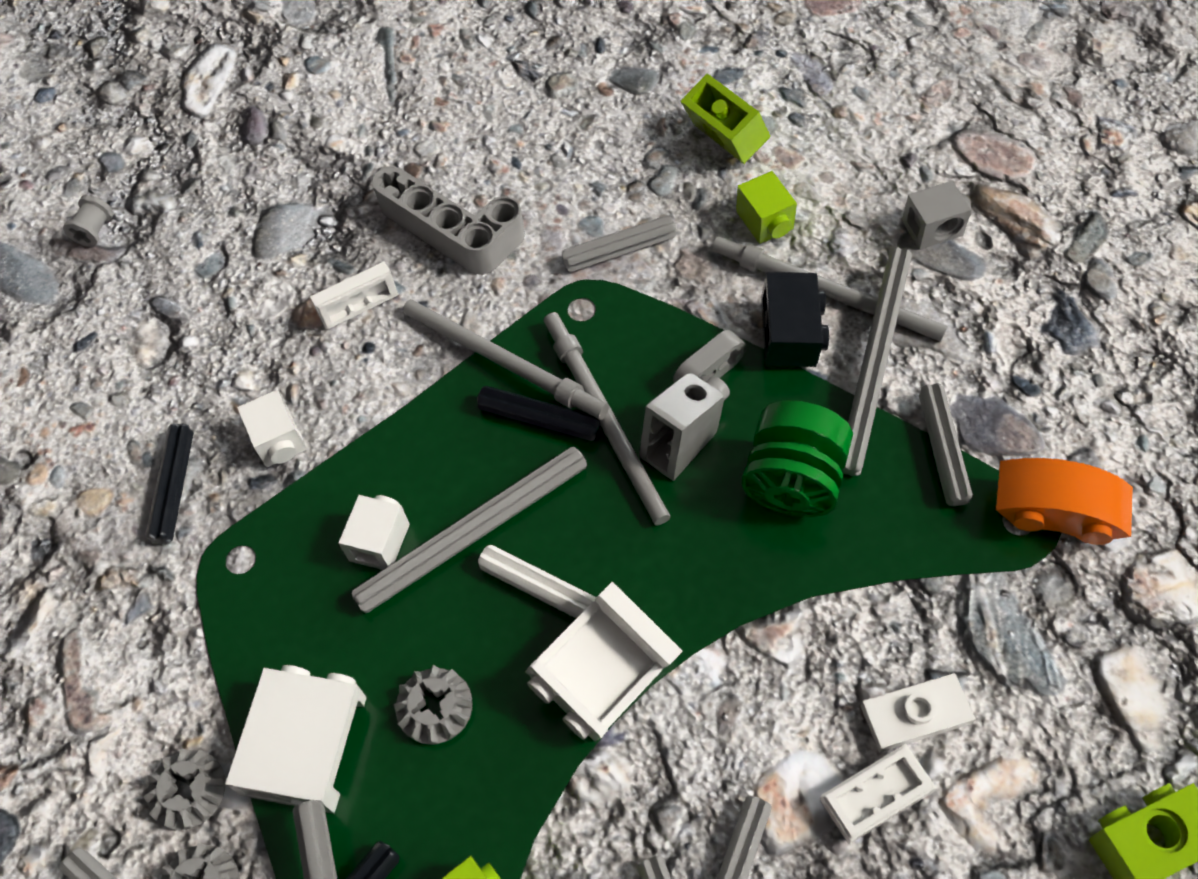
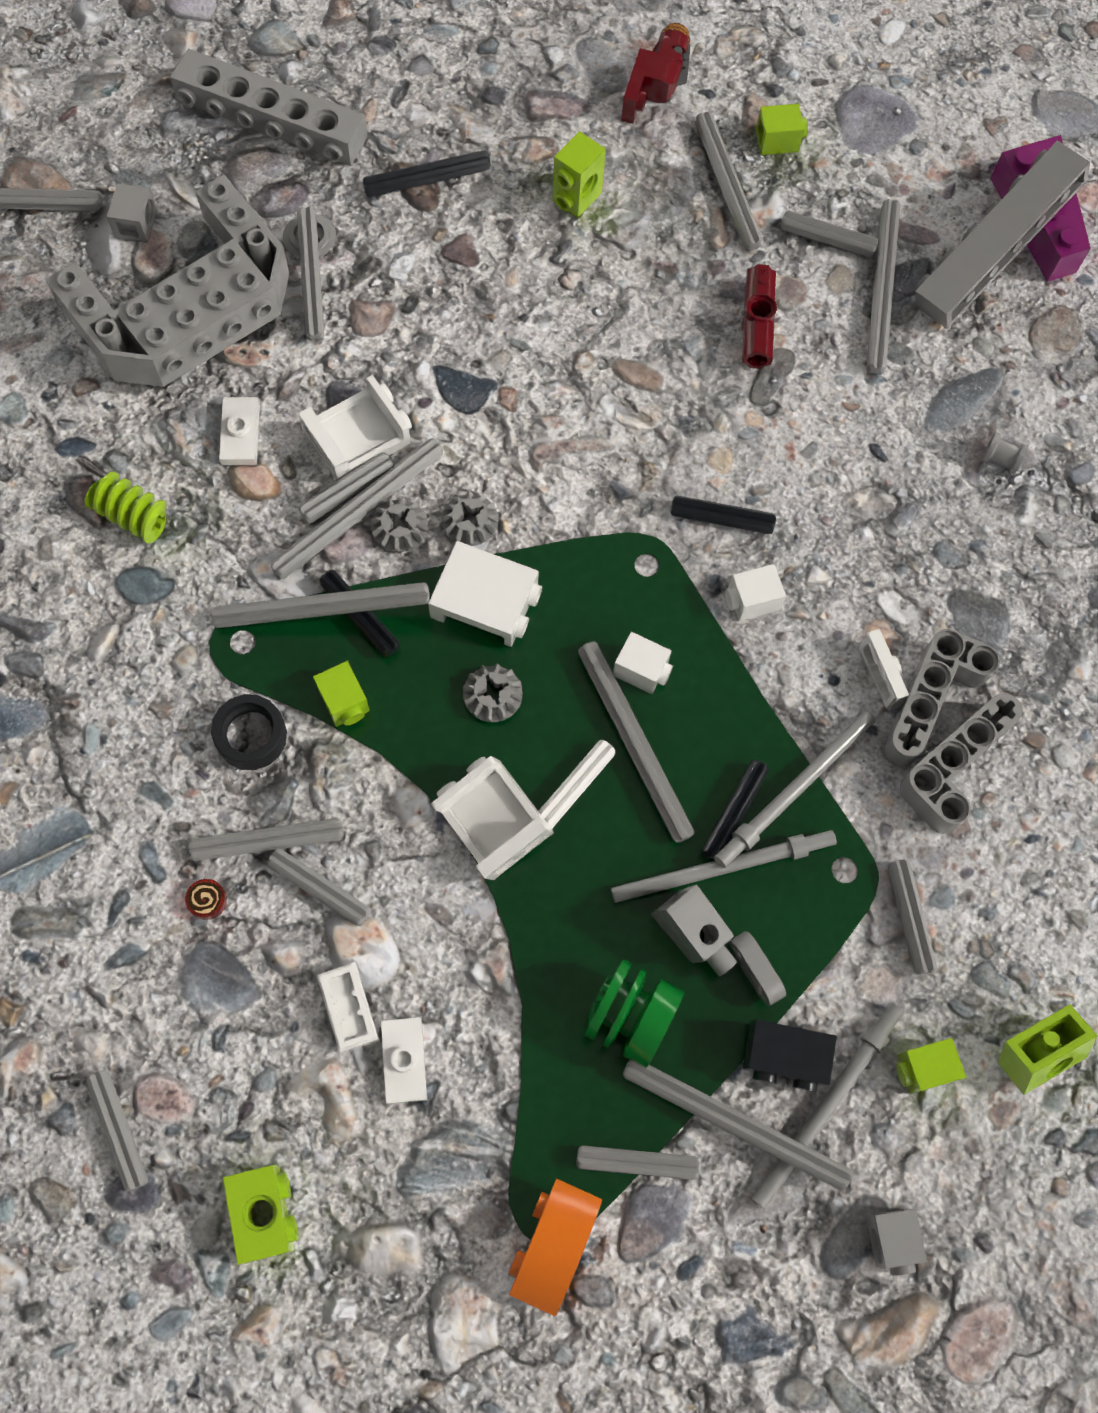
camera: 90 degrees right, 10 degrees up
(347, 248) = (930, 699): none -> light grey beam

